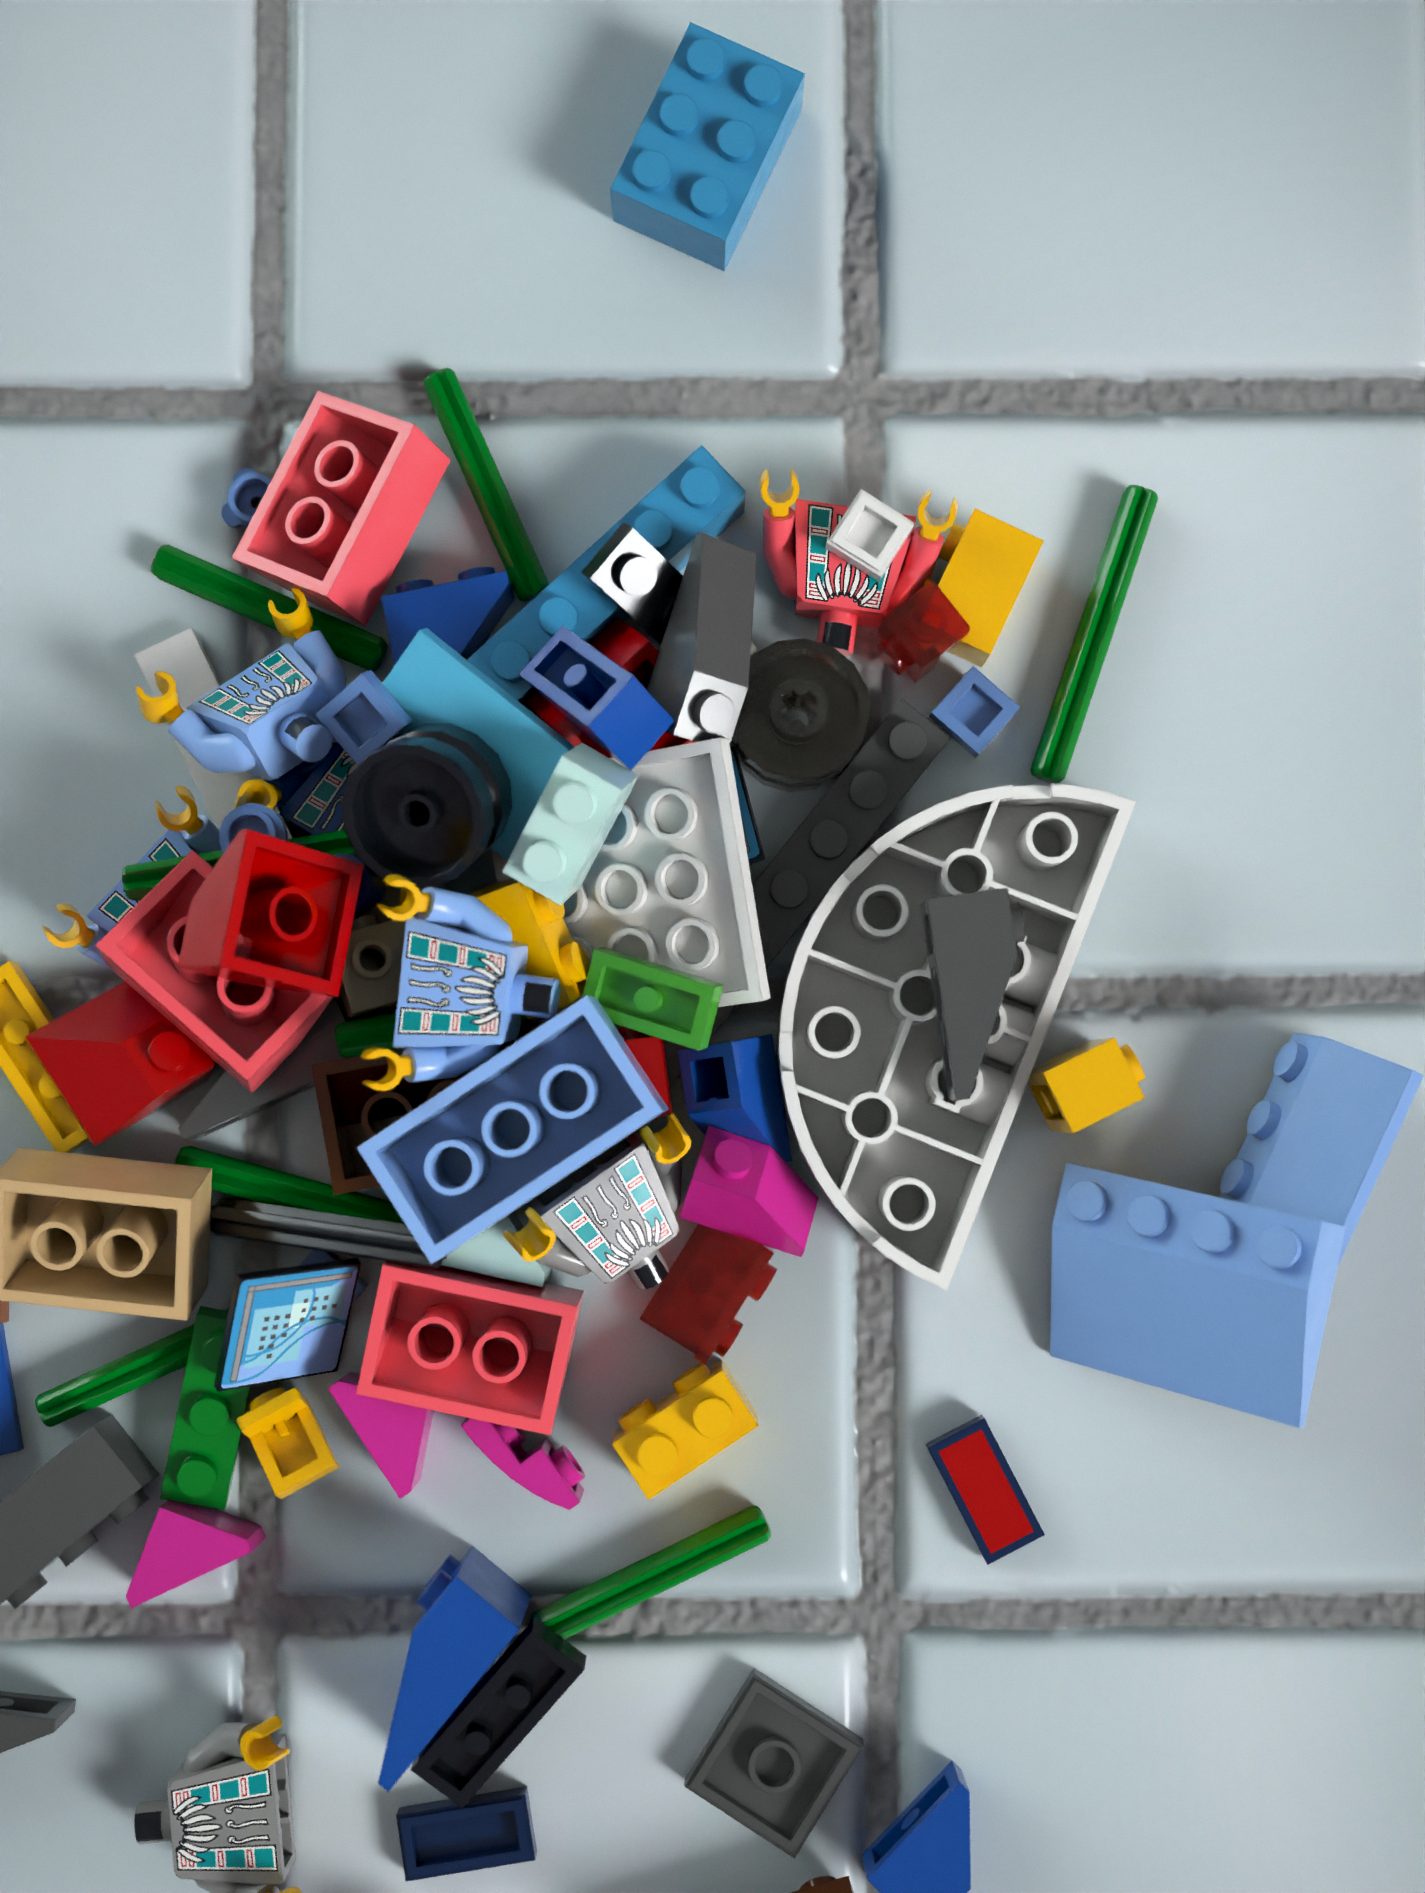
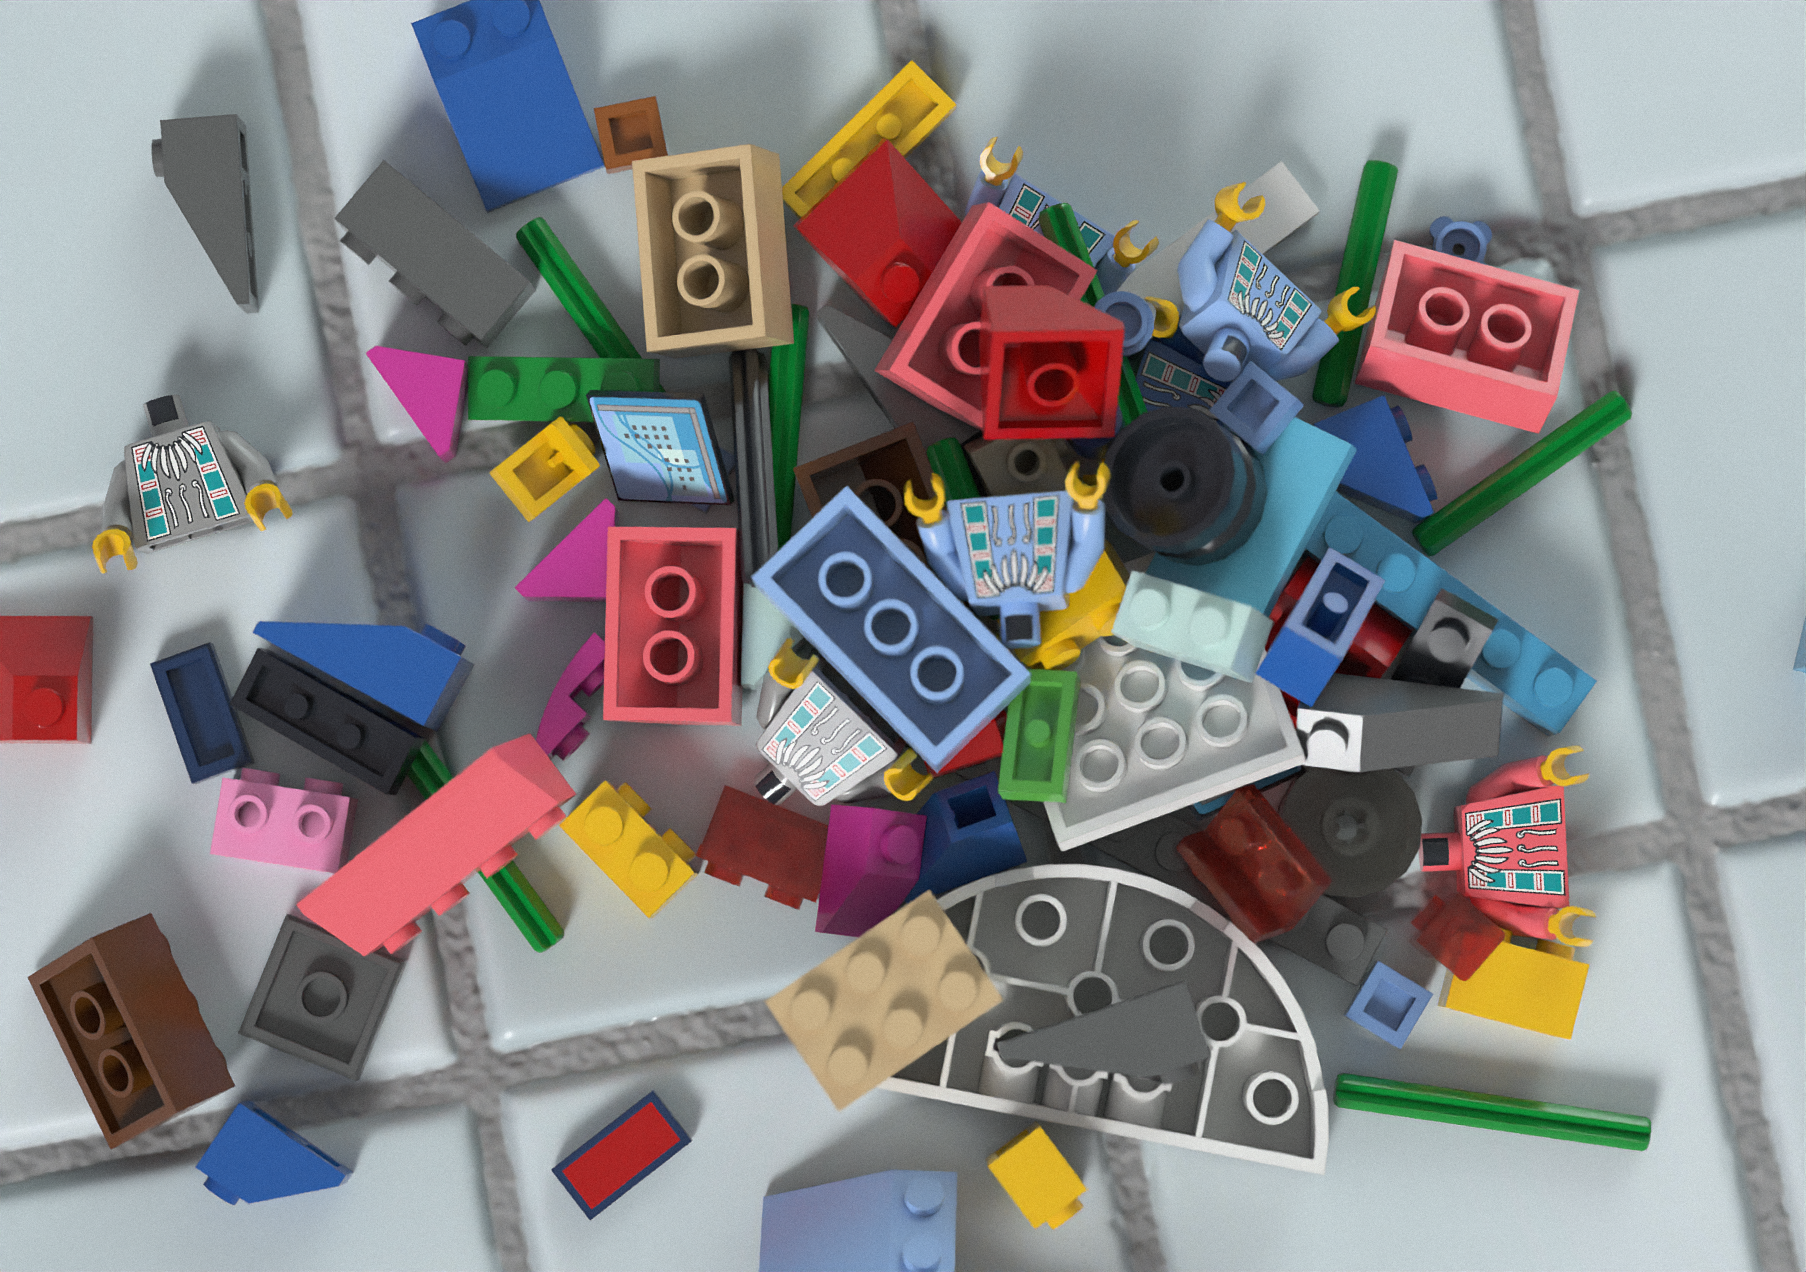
camera: 80 degrees right, 0 degrees up
(595, 1774) = (283, 823): none -> bright pink brick
(647, 1627) = (441, 847): none -> coral slope
(820, 810) = (1255, 866): none -> clear red bracket
(869, 535) = (1539, 864): white tile -> none
(890, 1207) = (884, 1000): none -> tan brick

